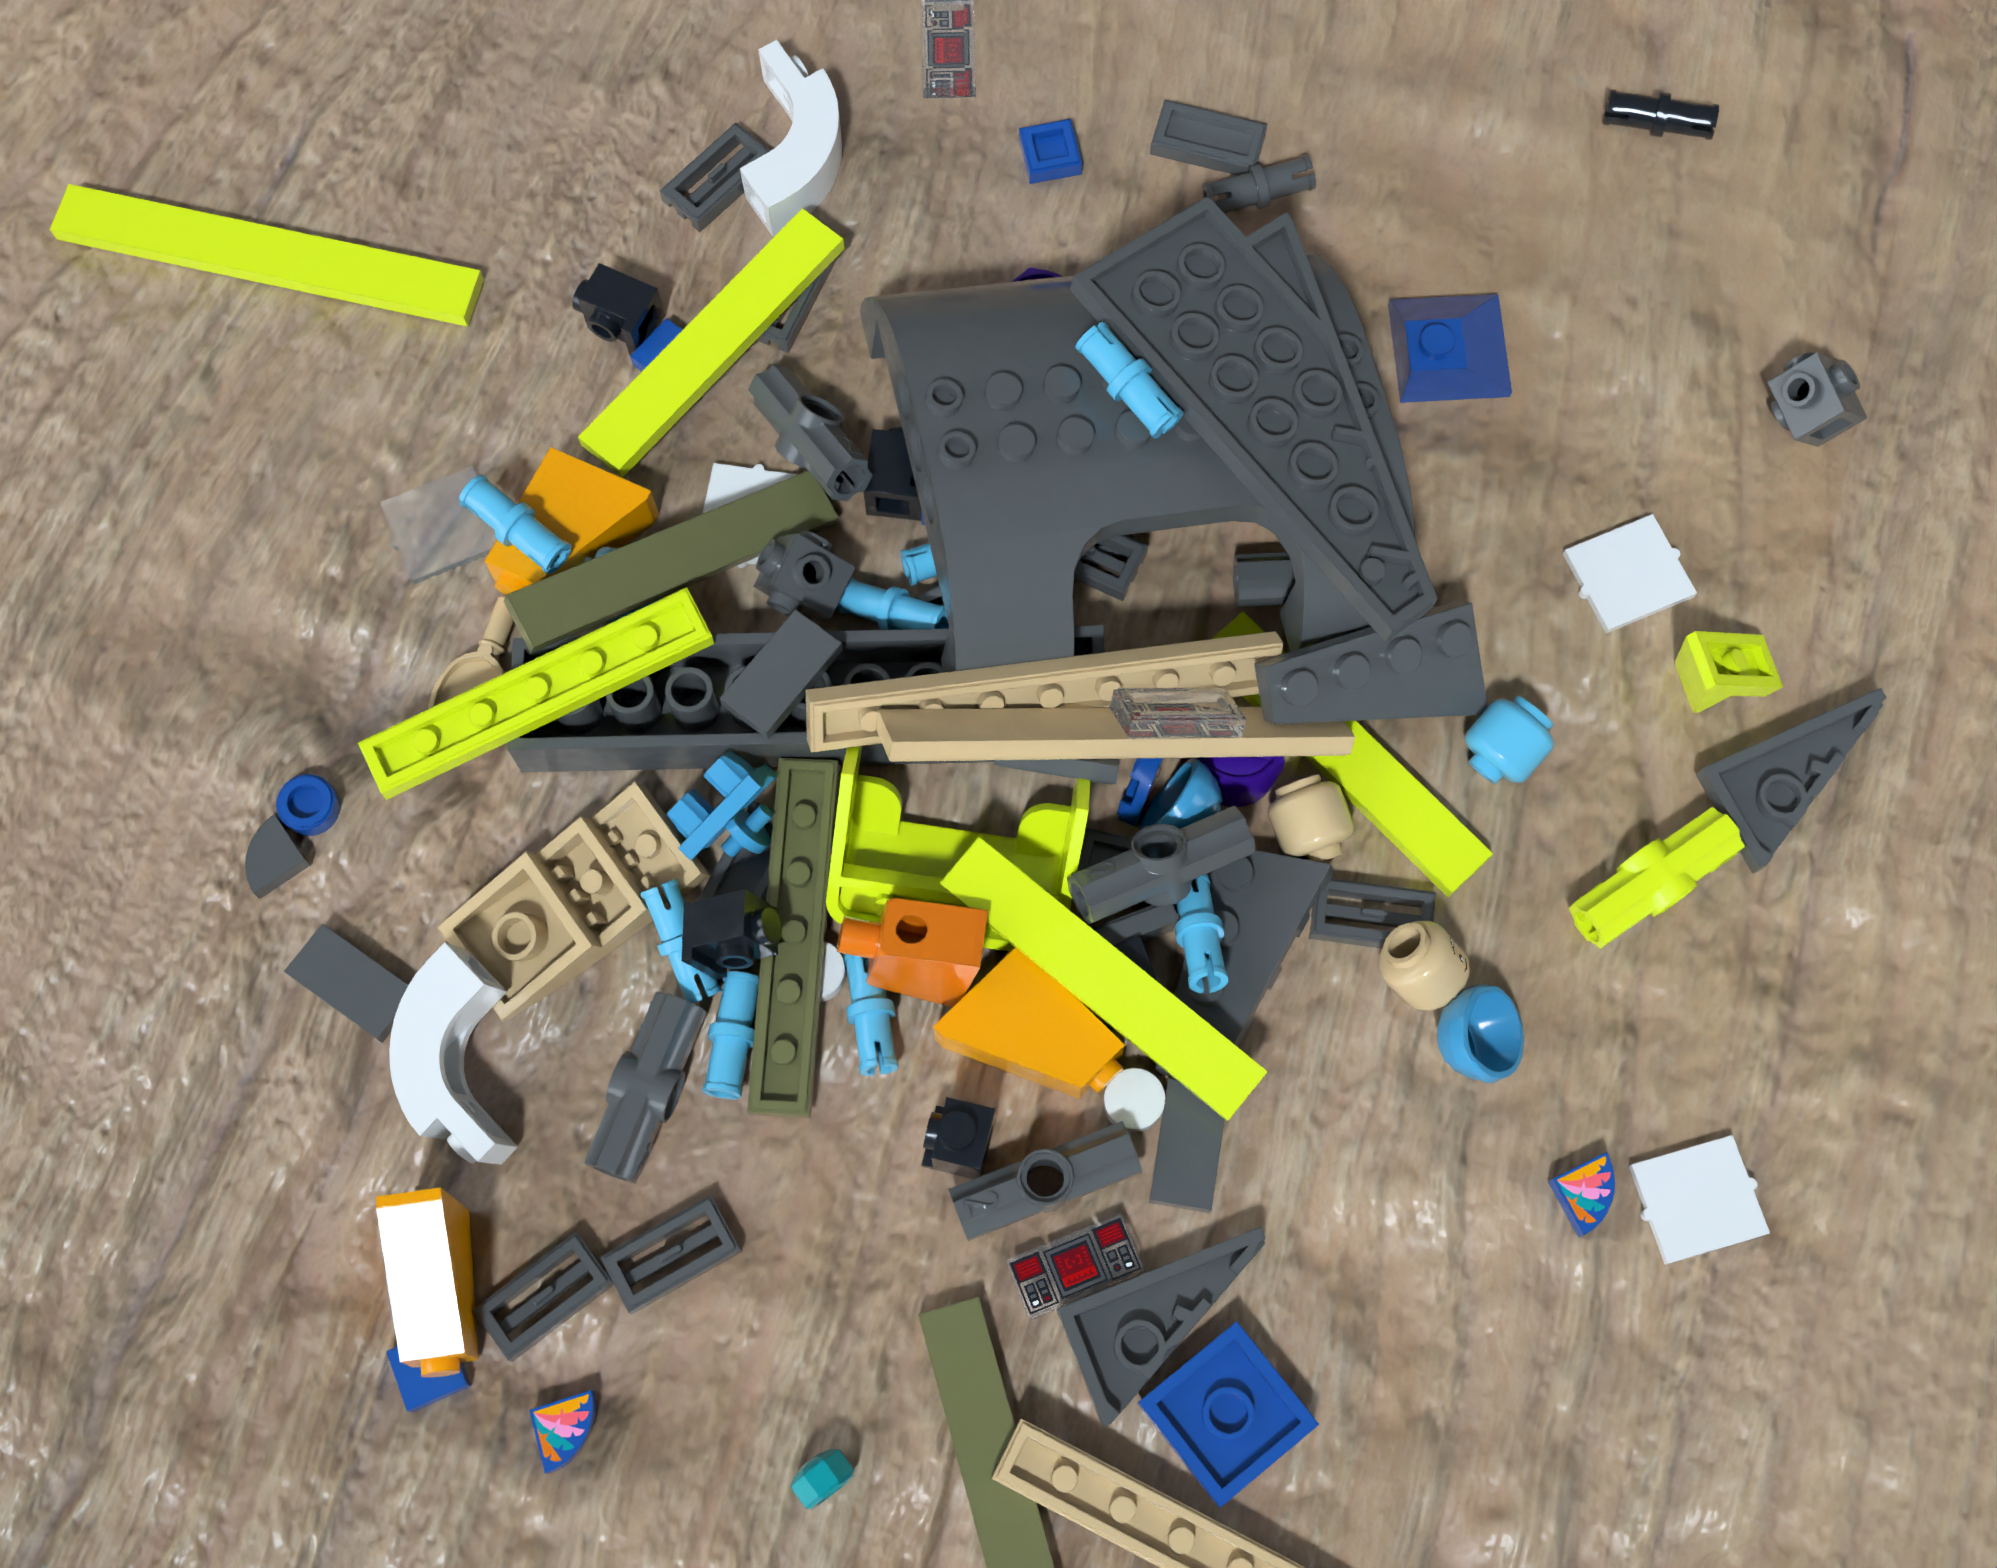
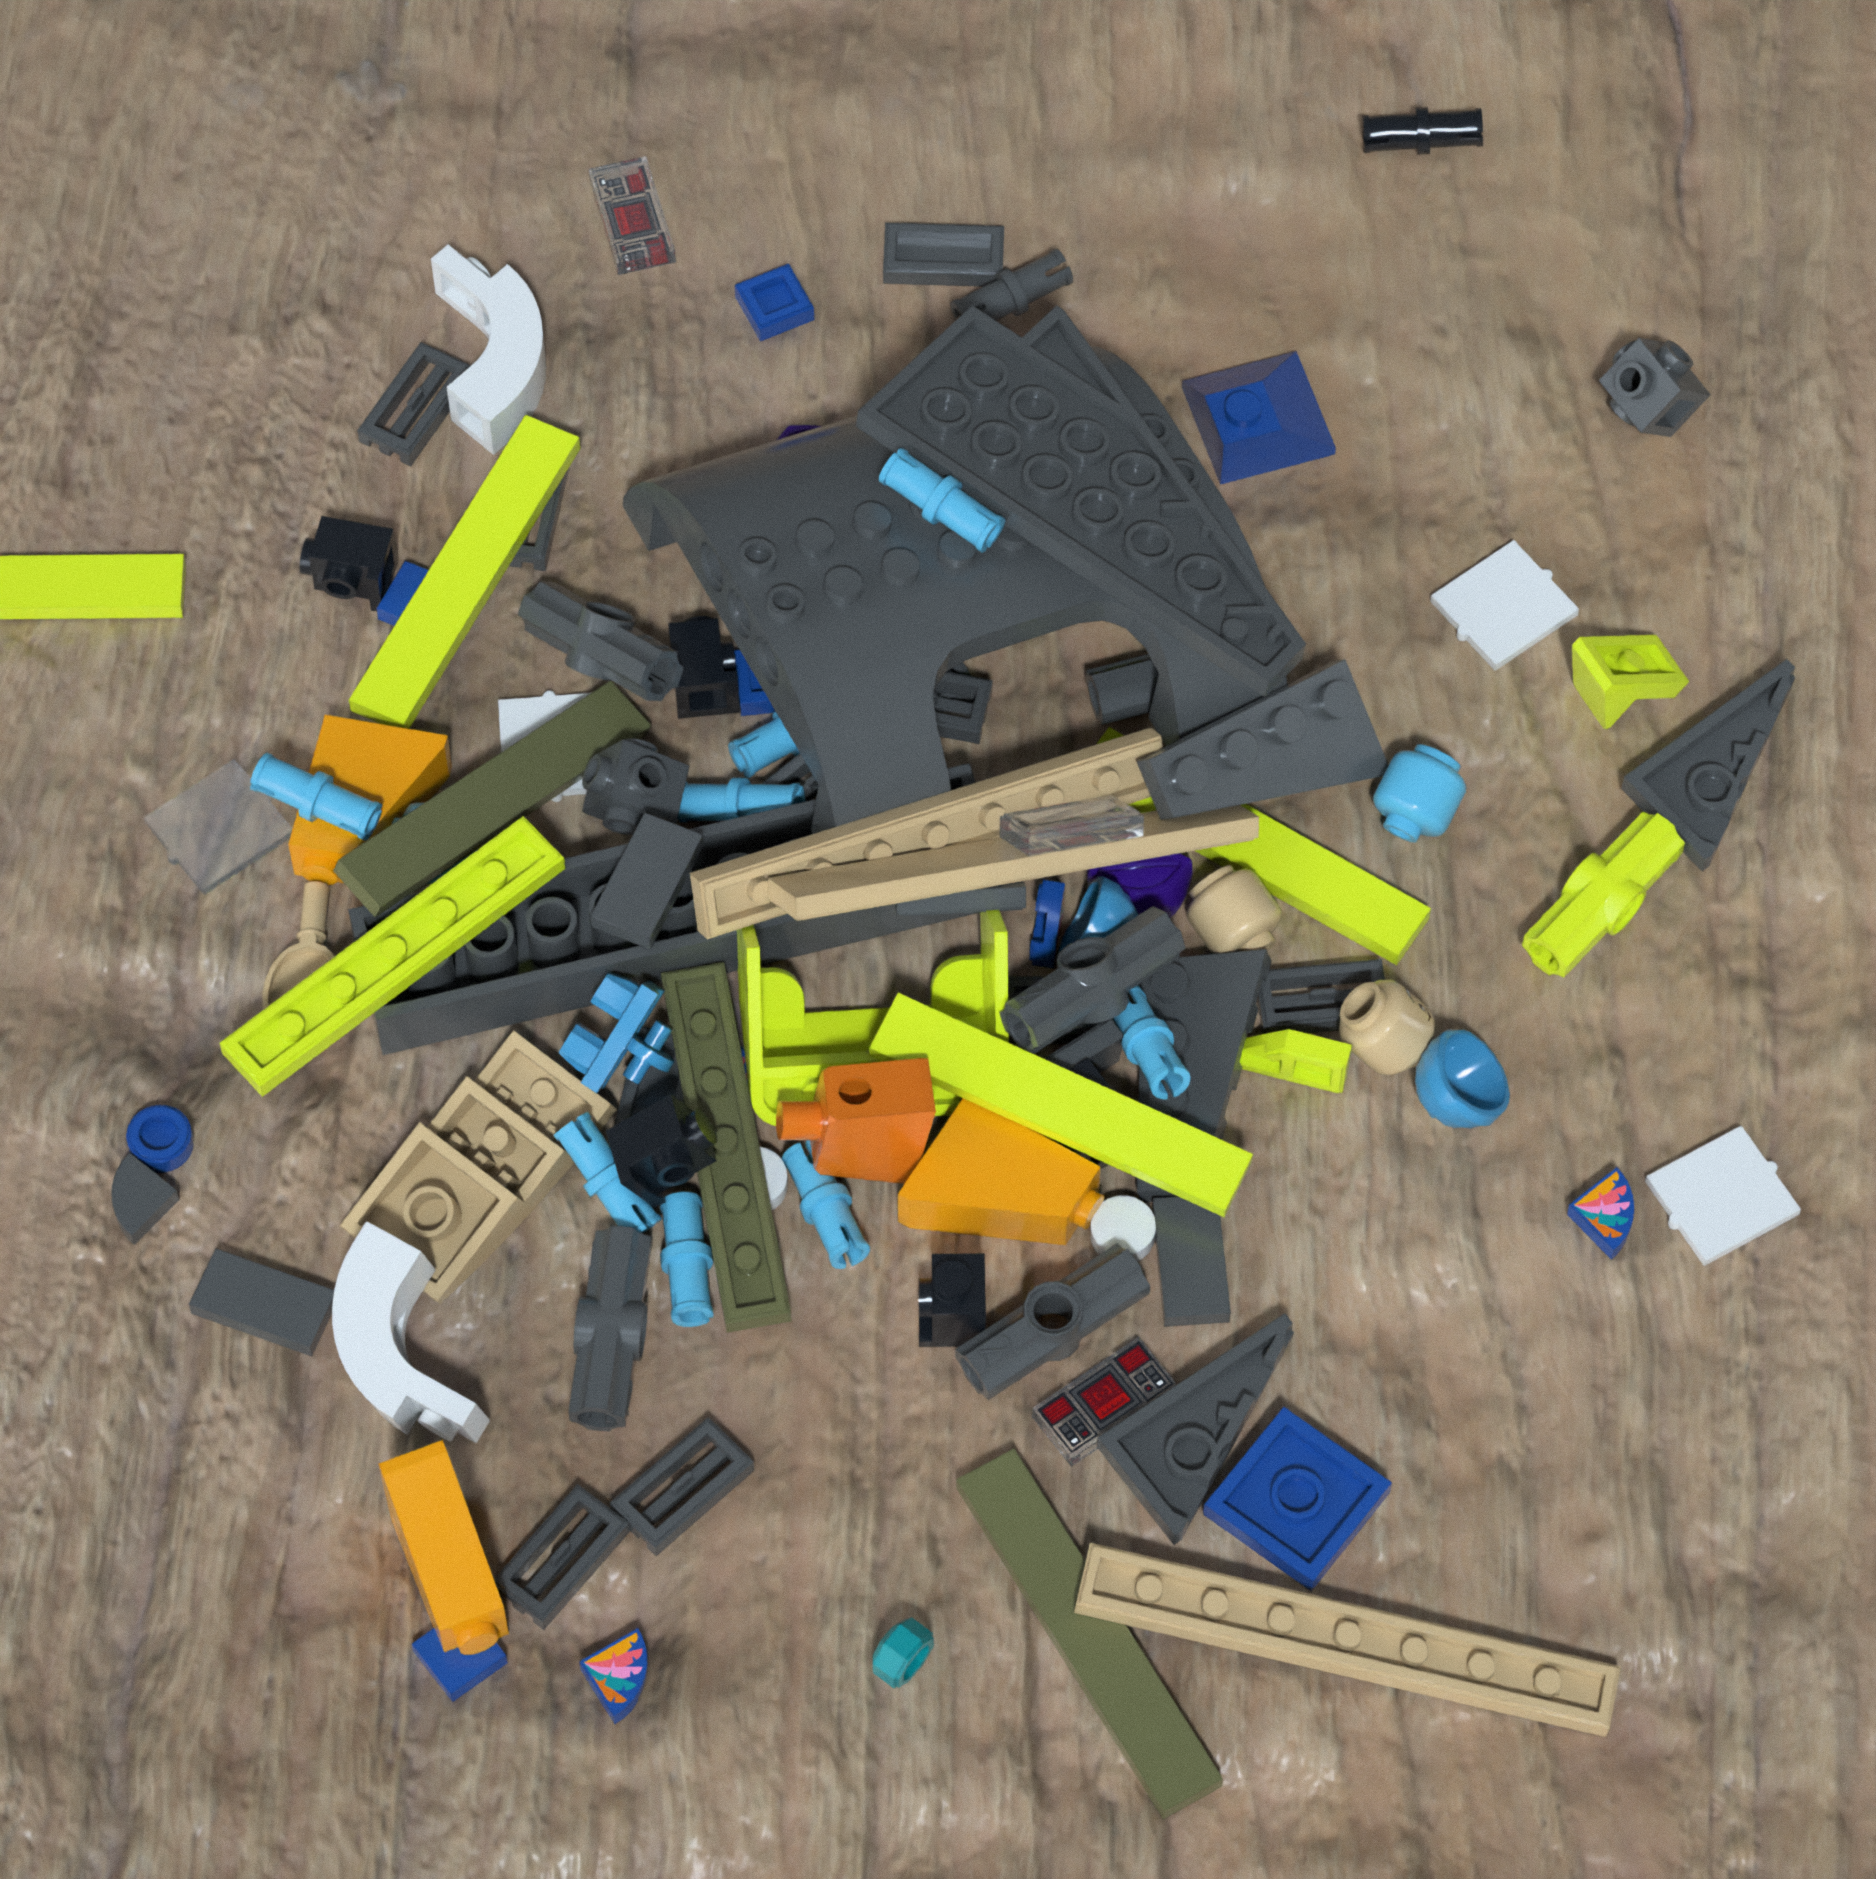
camera: 15 degrees left, 10 degrees down
(1335, 973) = (1298, 1059): none -> neon yellow tile

